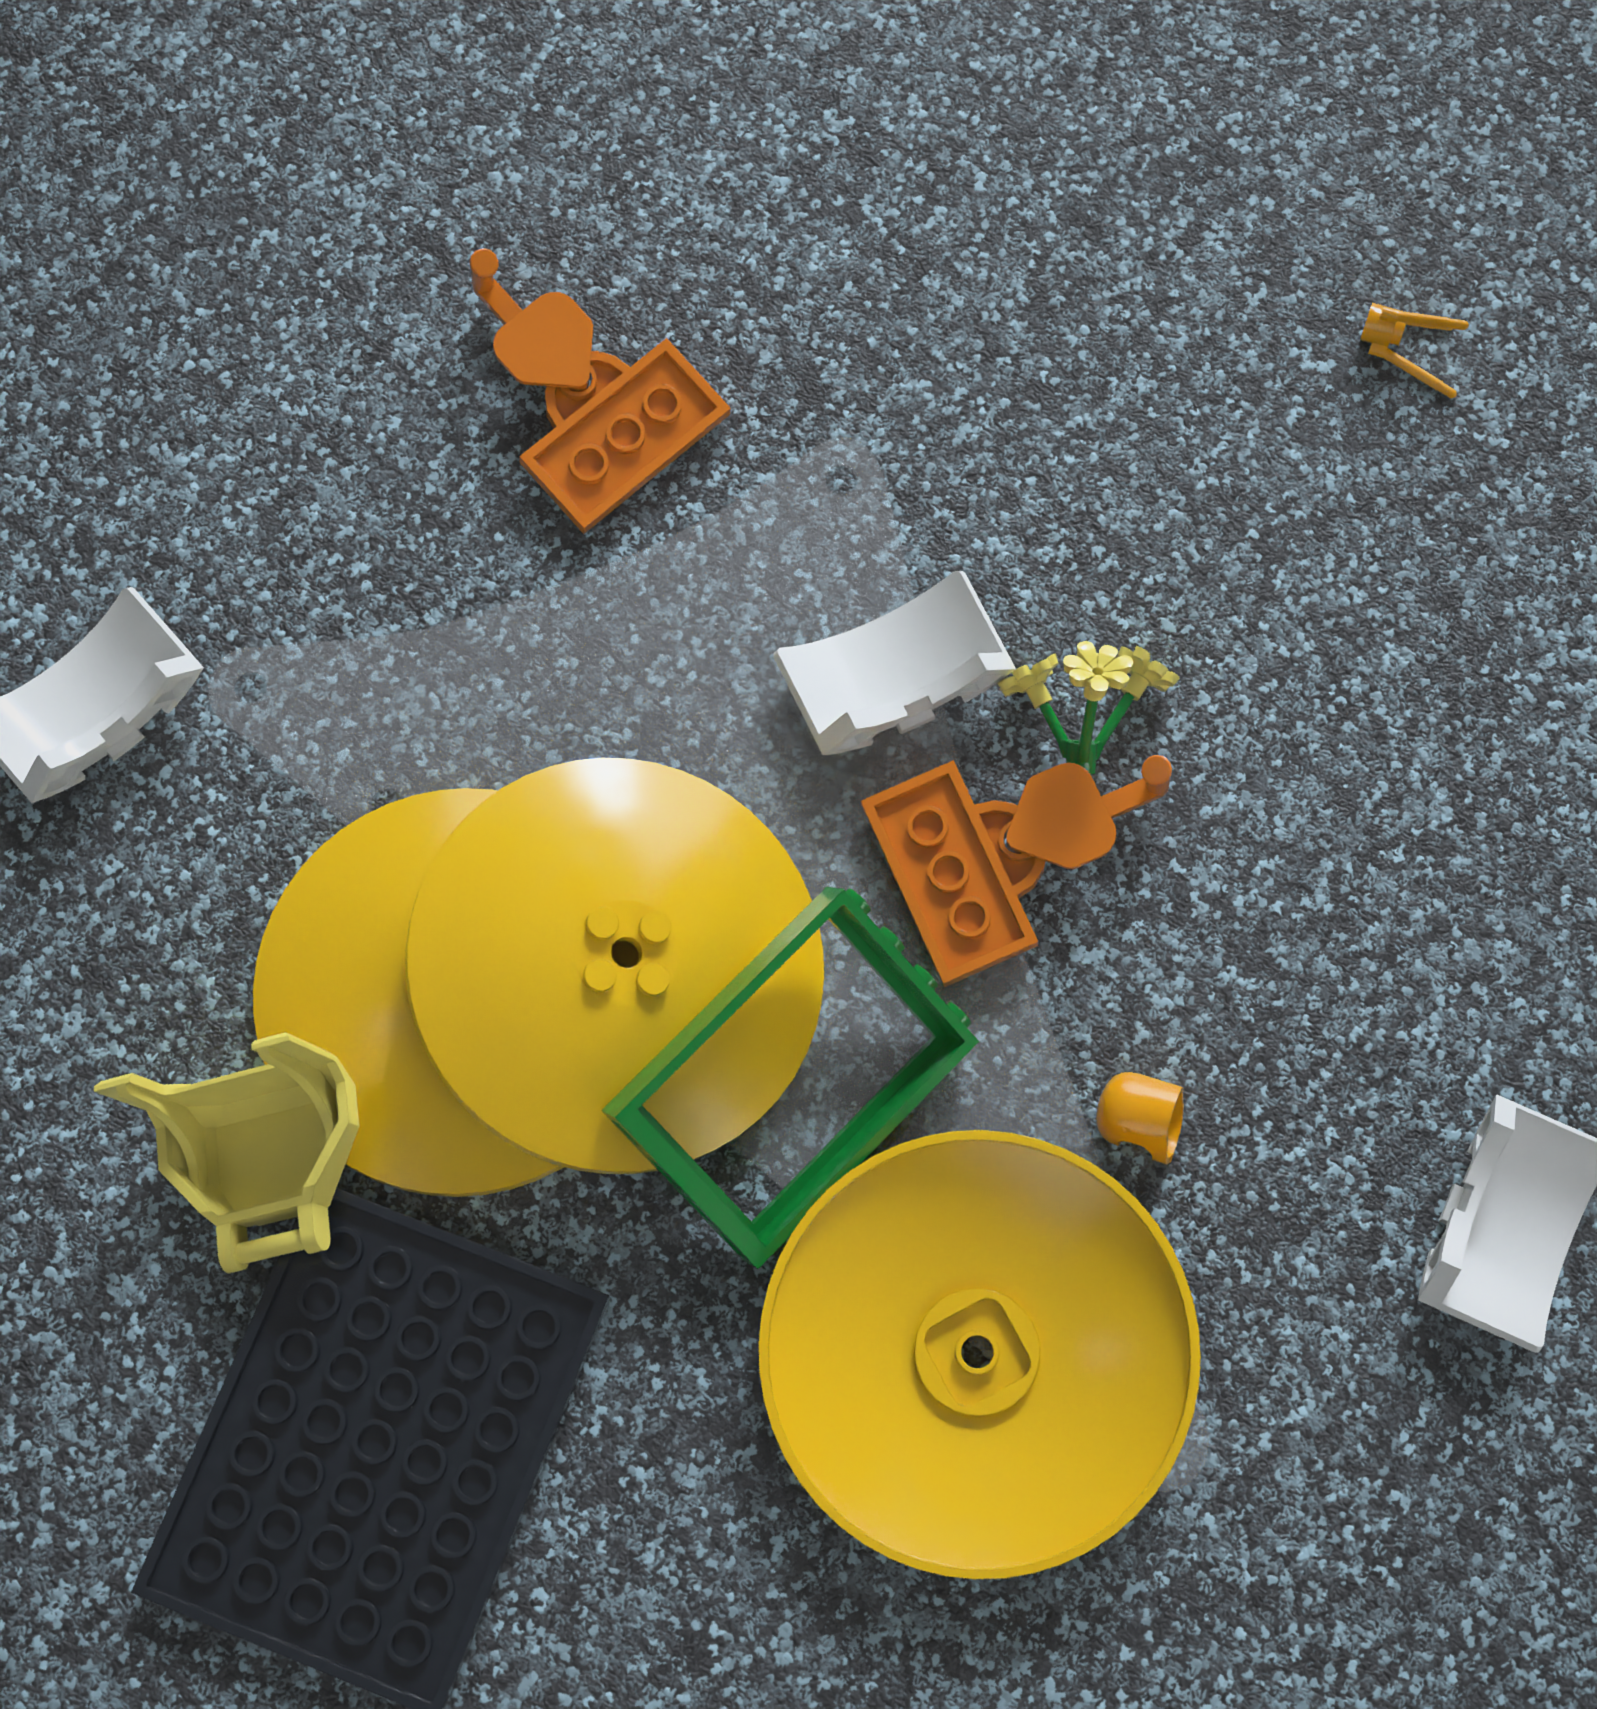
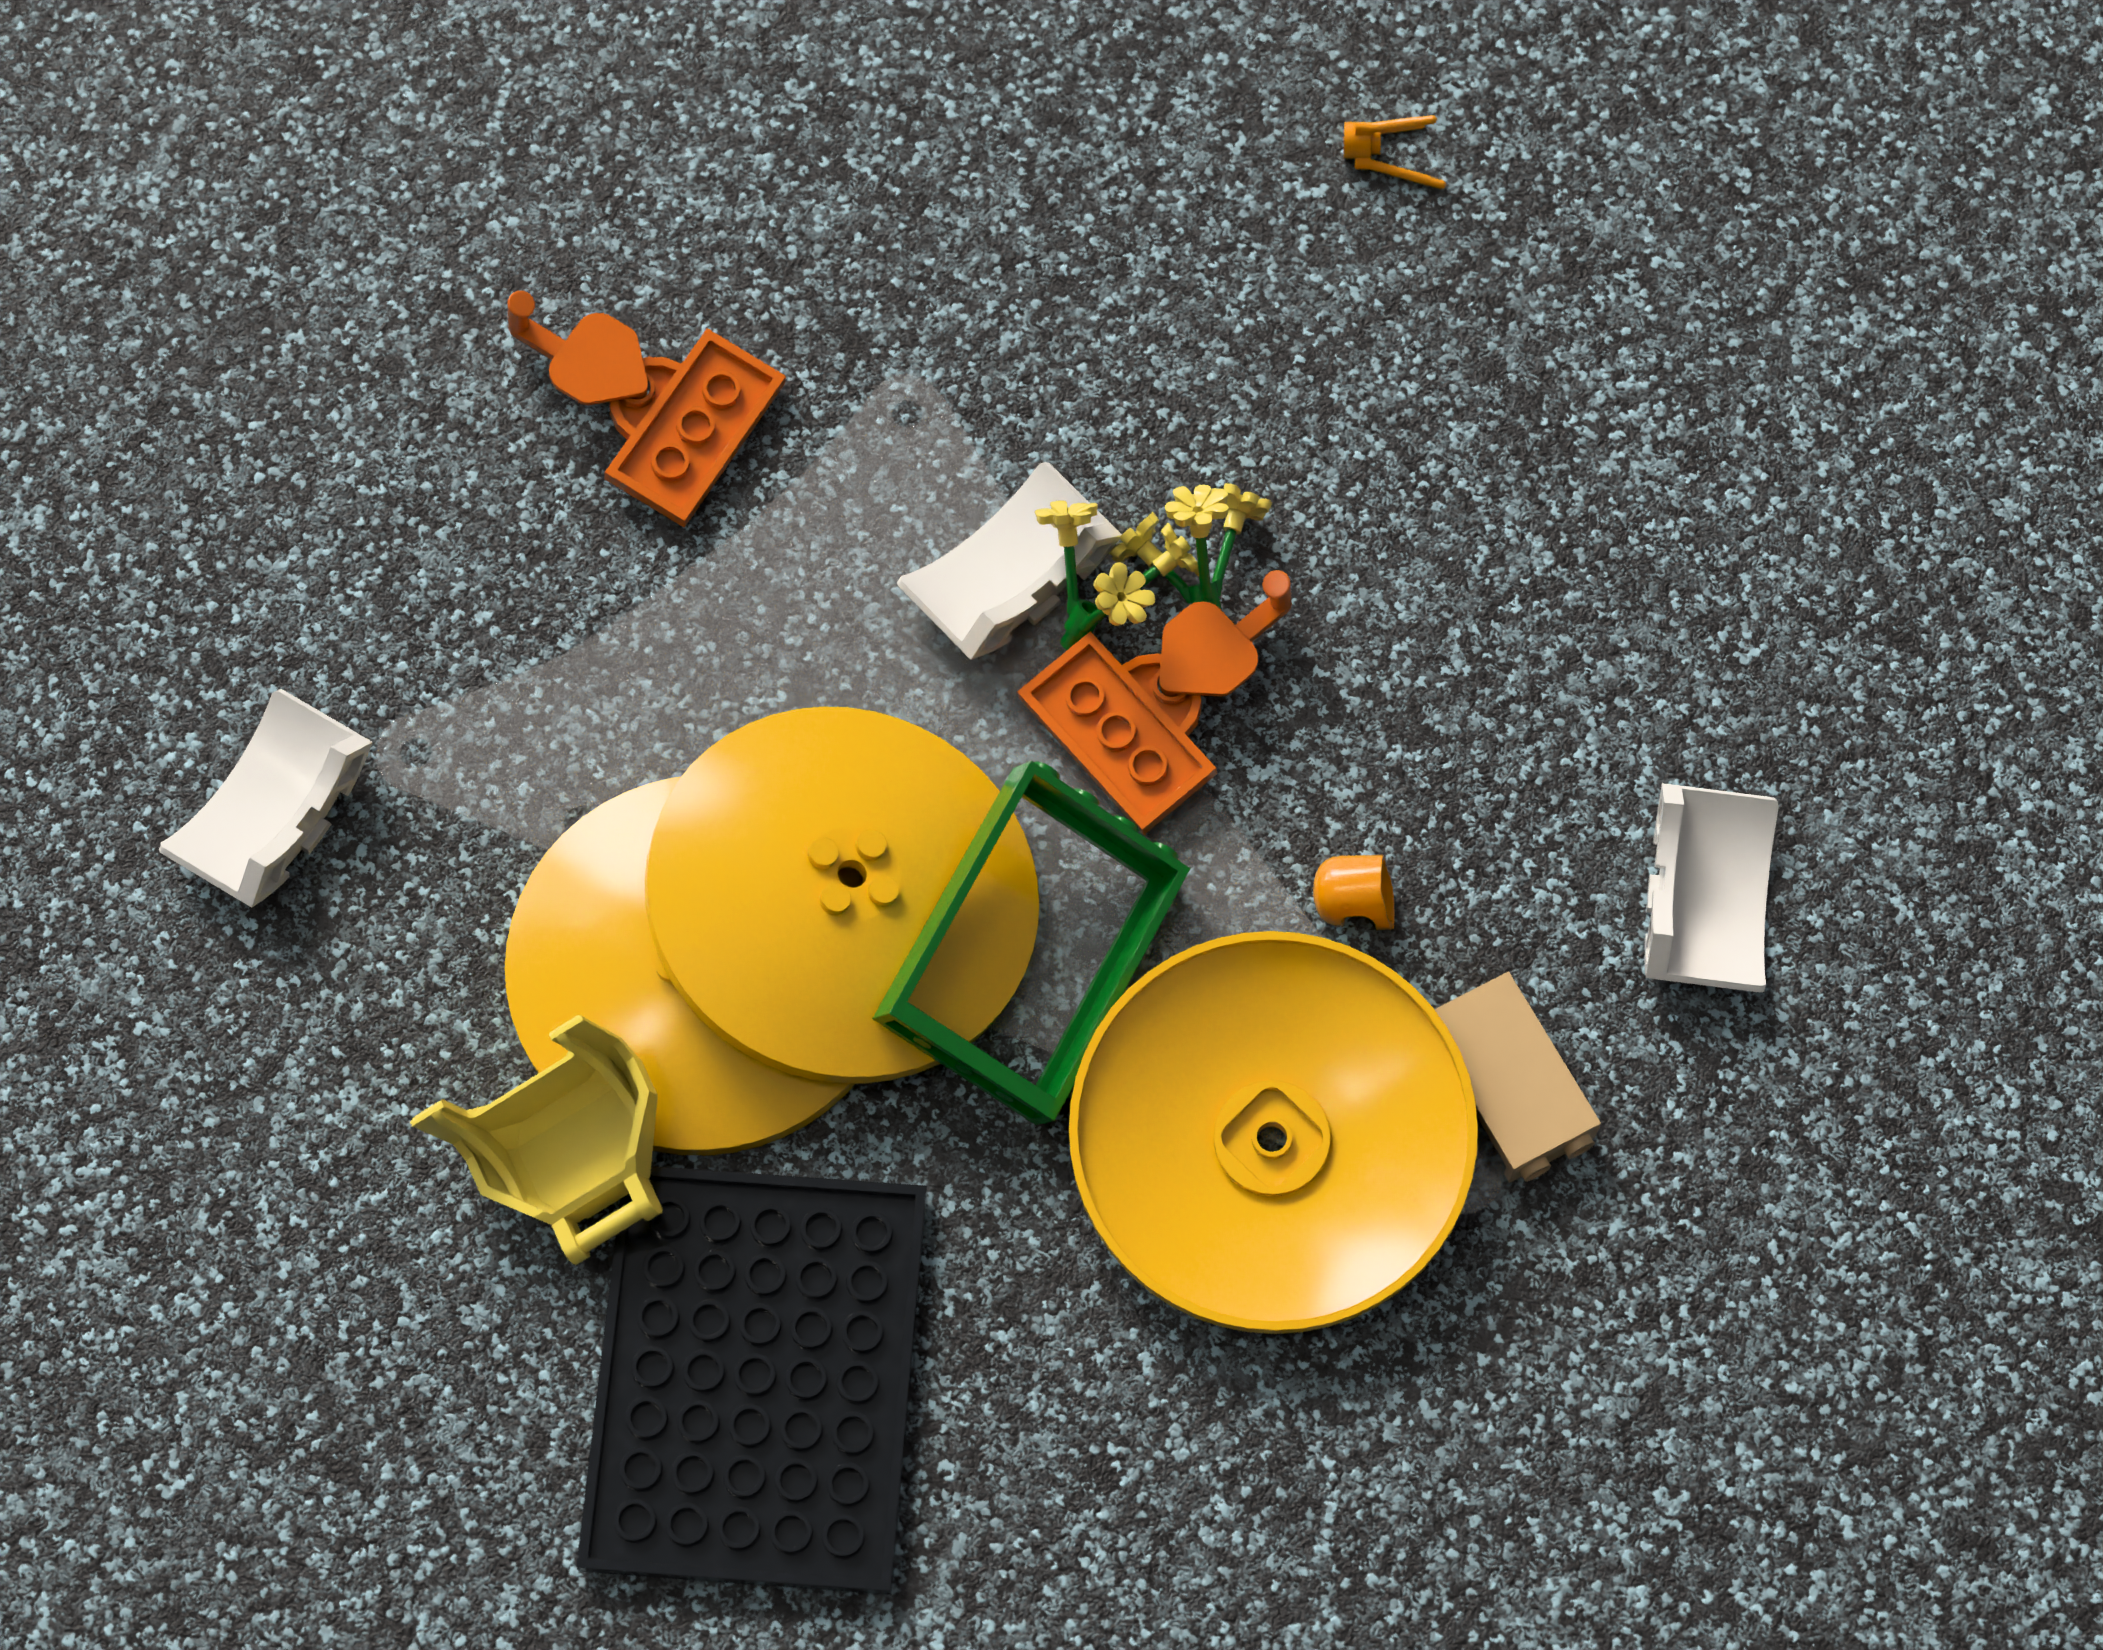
camera: 15 degrees left, 5 degrees down
(990, 735) = (1119, 594): none -> light yellow plant
(1251, 1366) = (1518, 1079): none -> tan panel

